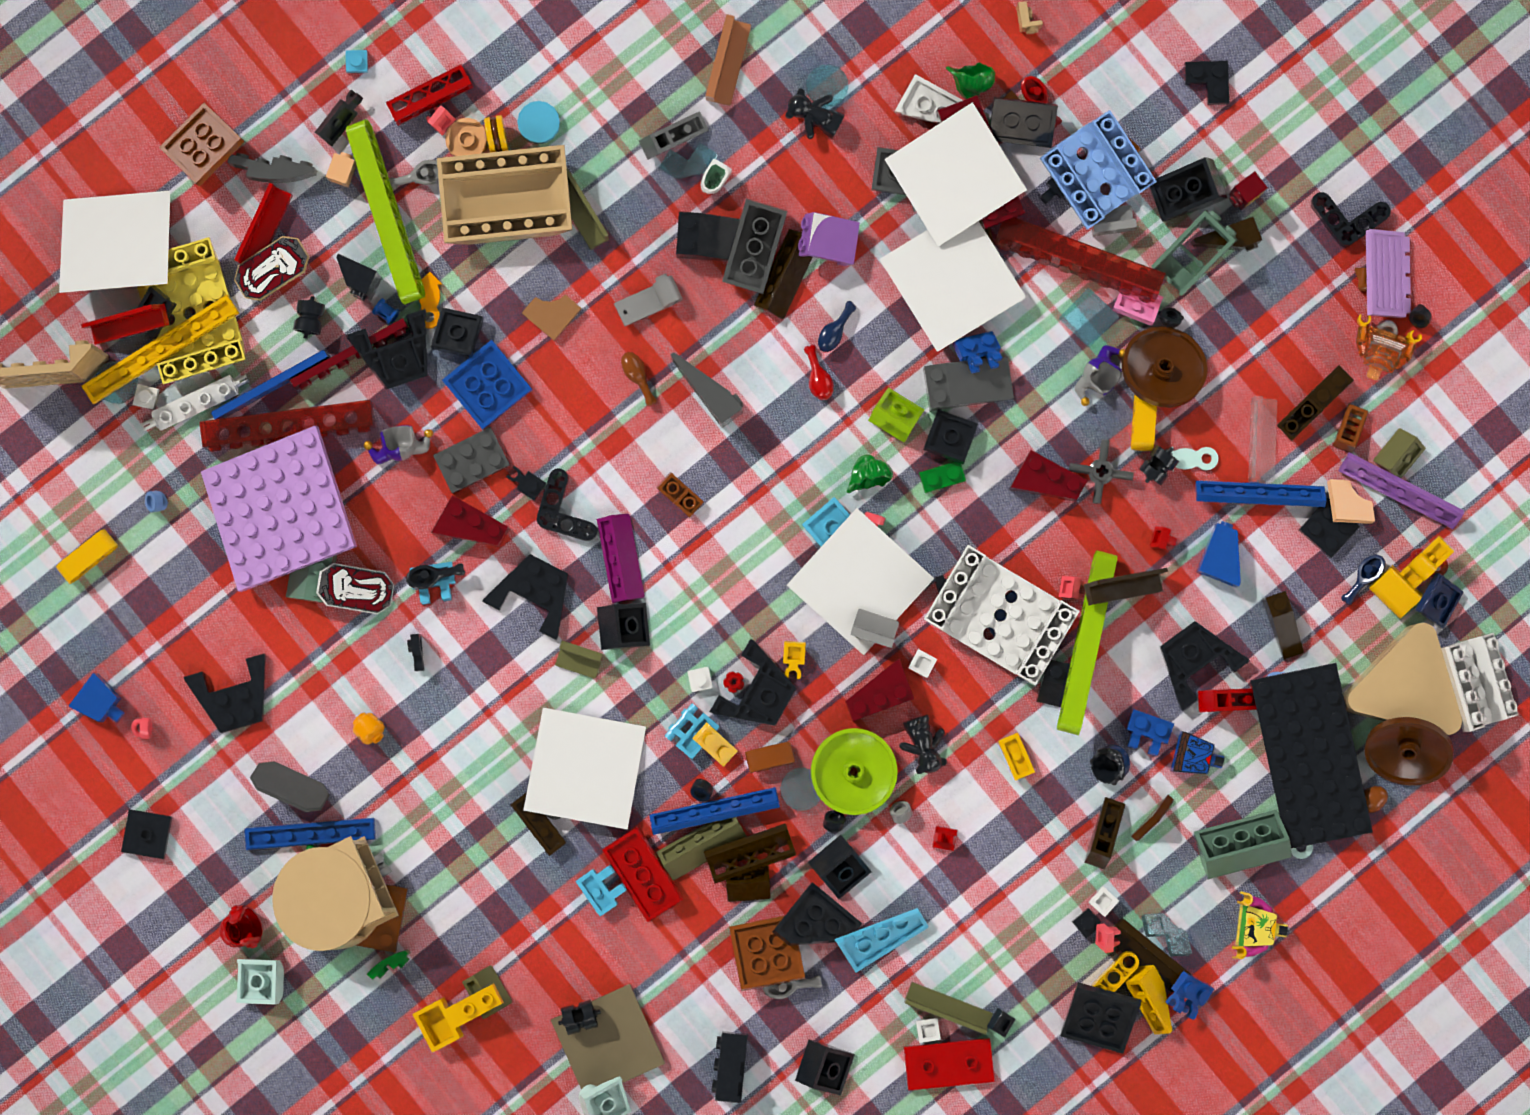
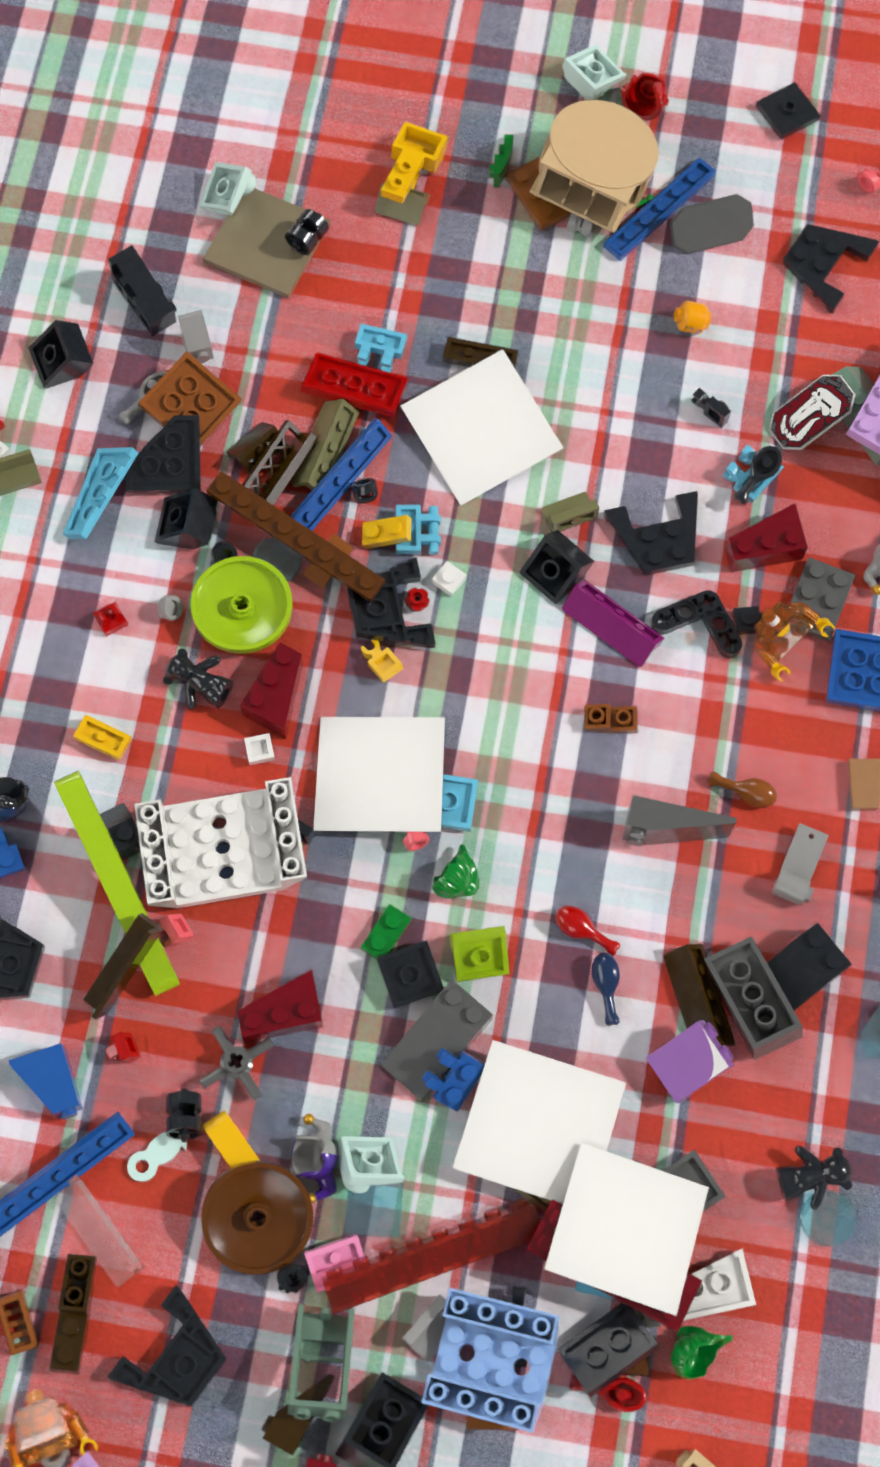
camera: 135 degrees right, 15 degrees down
(520, 454) = (782, 629): none -> clear orange torso
(715, 177) = (849, 1031): rock -> none
(724, 997) = (196, 336): none -> light grey slope
(780, 788) = (296, 536): none -> reddish brown plate
(874, 628) = (329, 741): light grey panel -> none
(1072, 343) = (368, 1162): none -> light aqua slope
(1272, 320) = (185, 1363): none -> black wing

